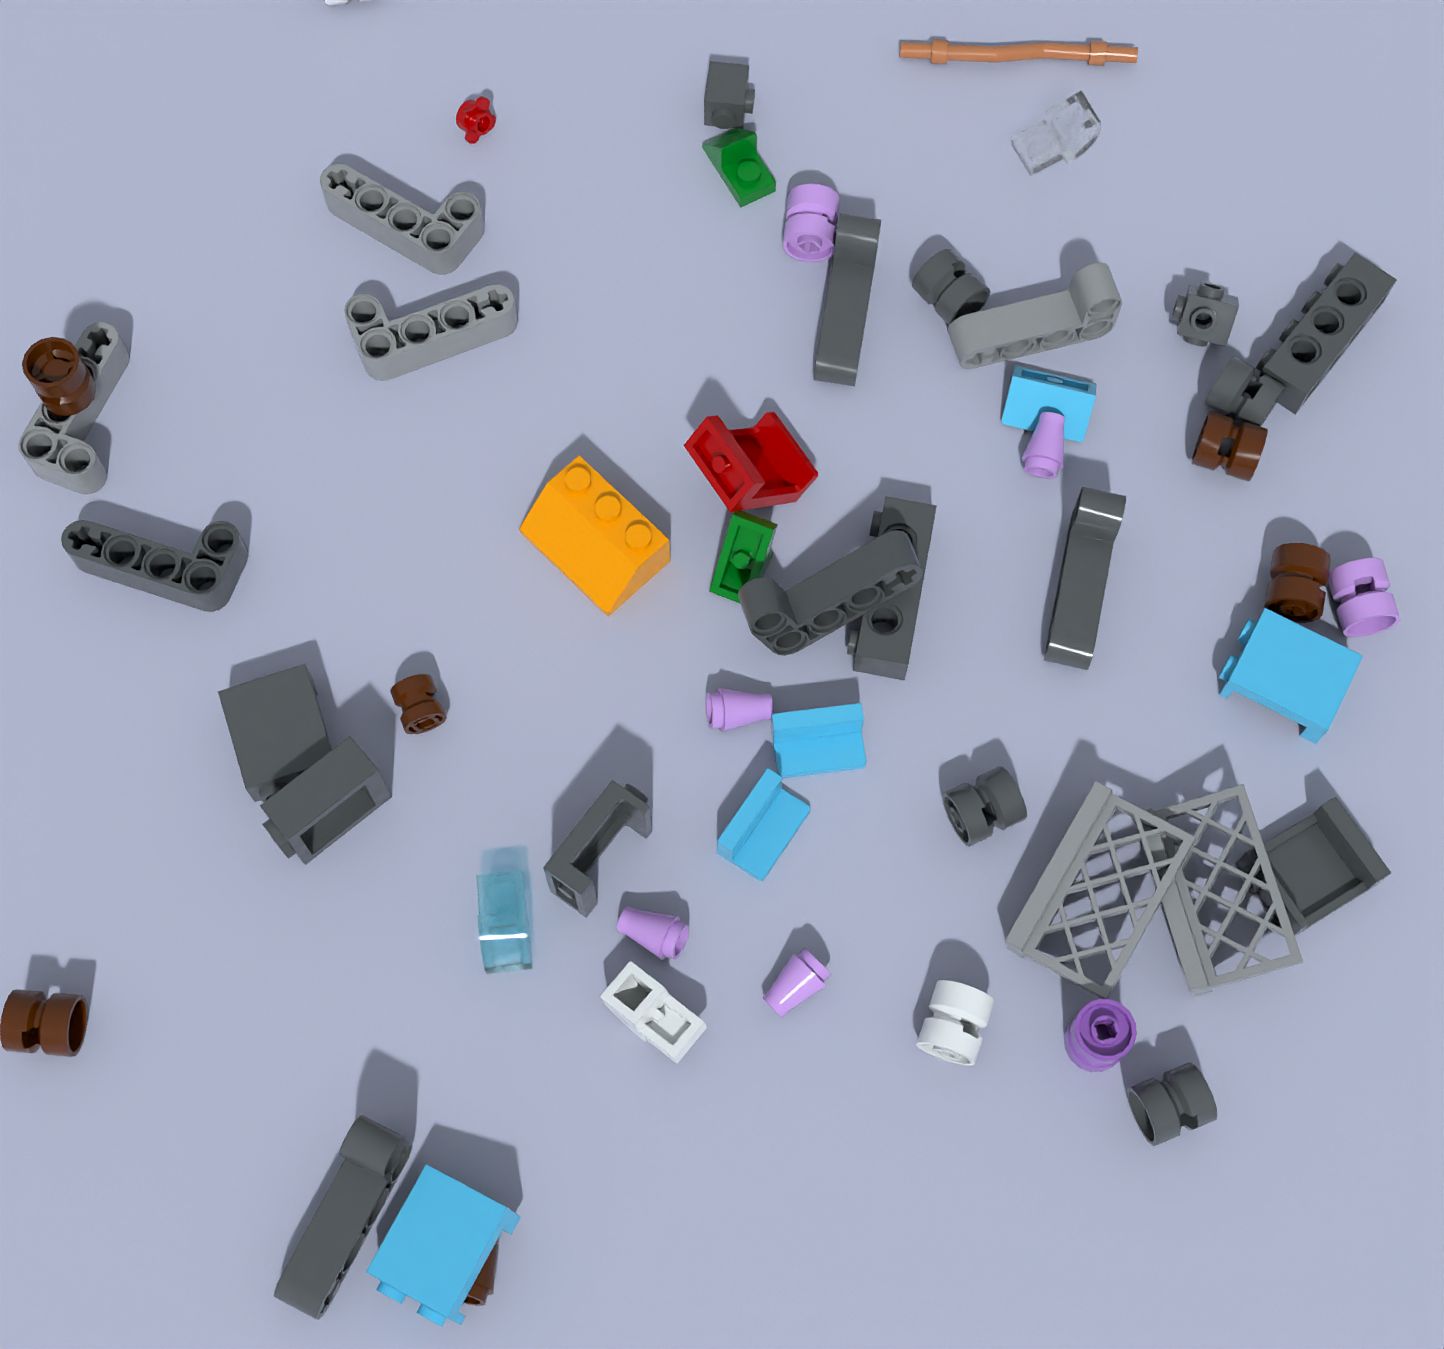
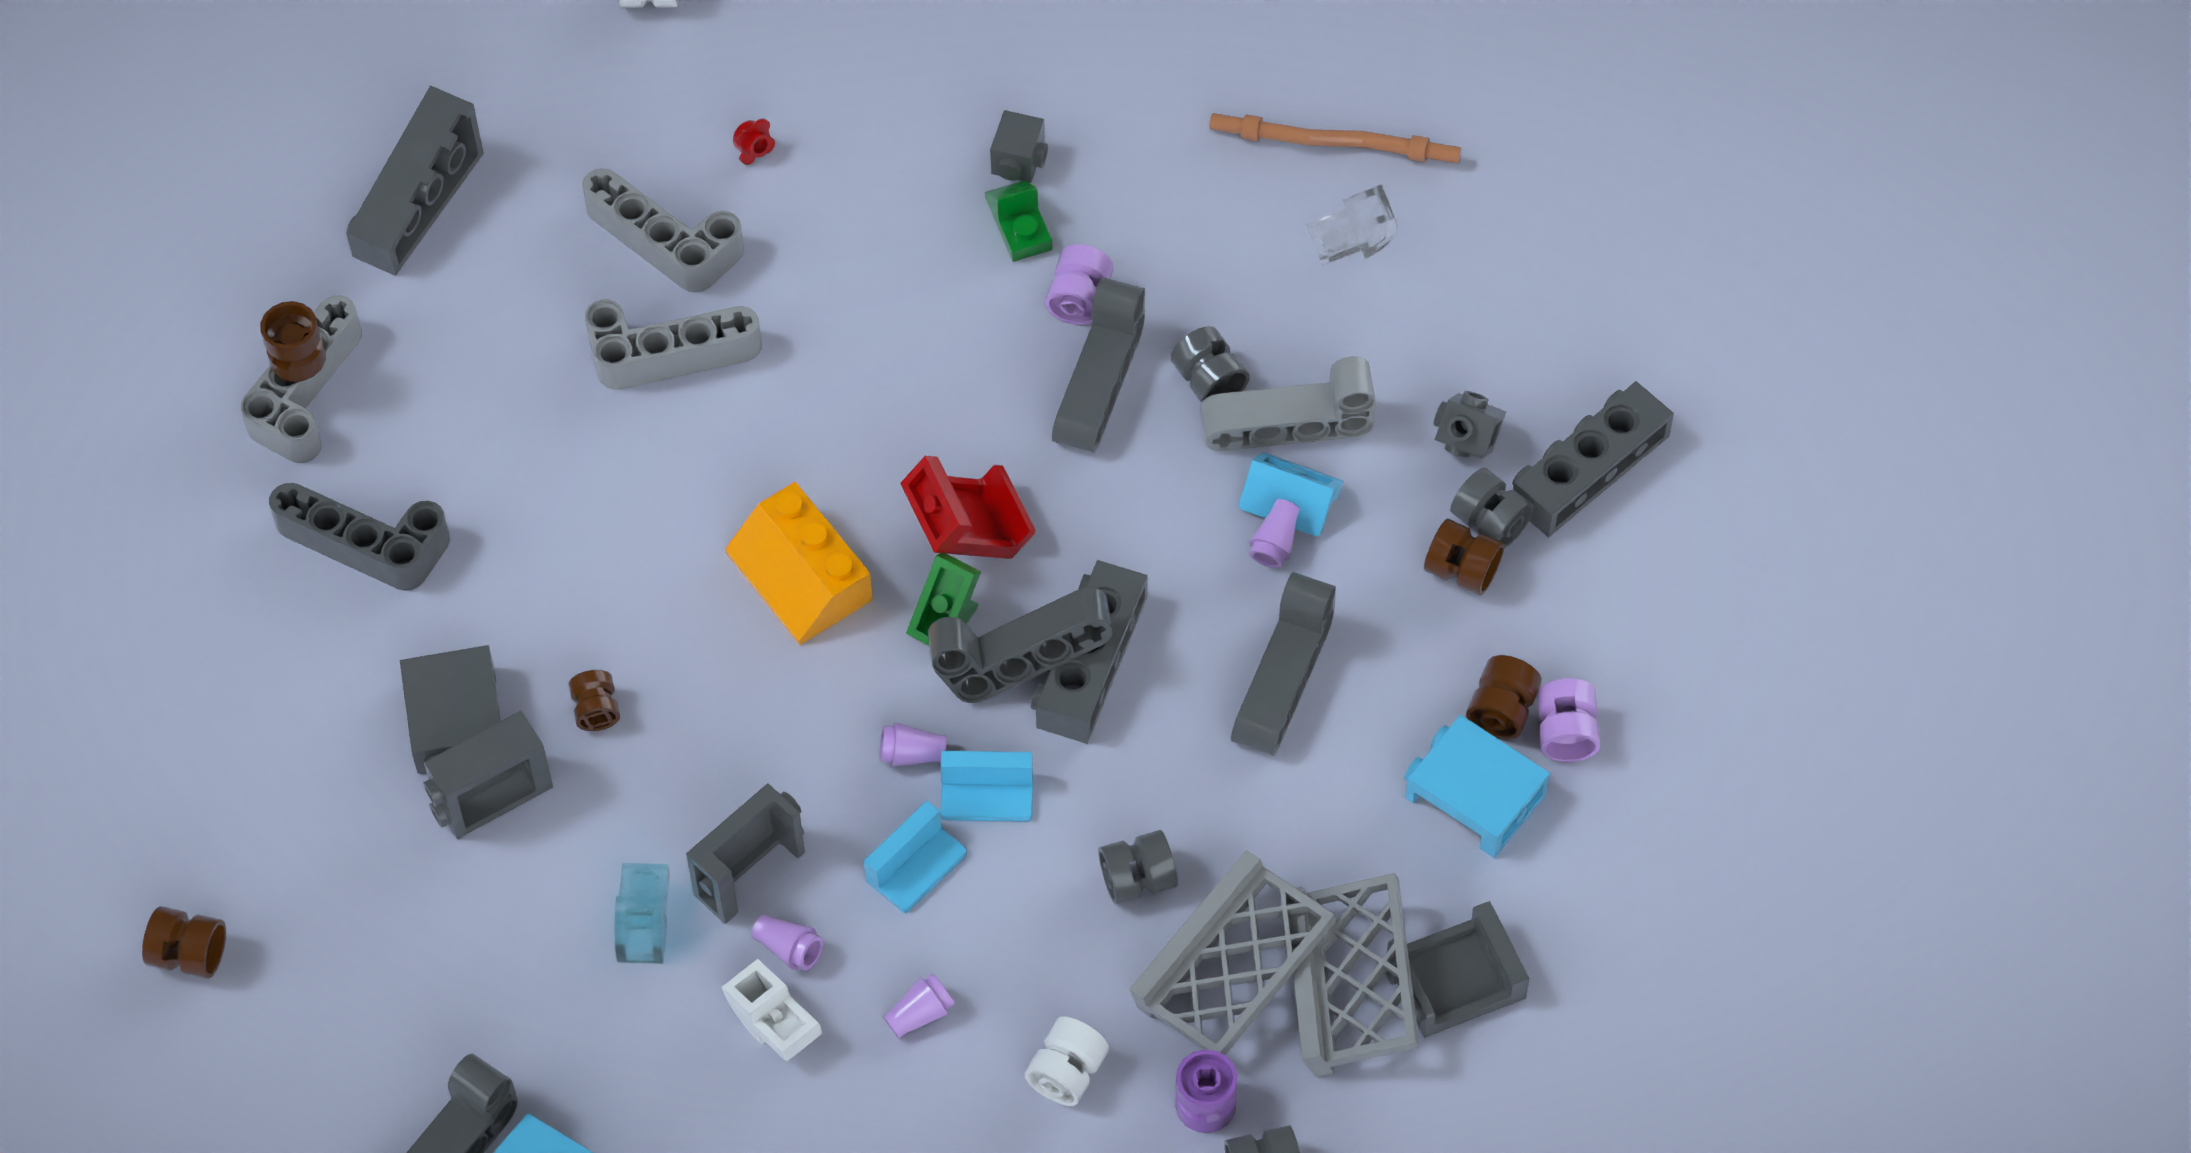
camera: 10 degrees right, 10 degrees down
(158, 197) = (416, 181): none -> dark grey wedge

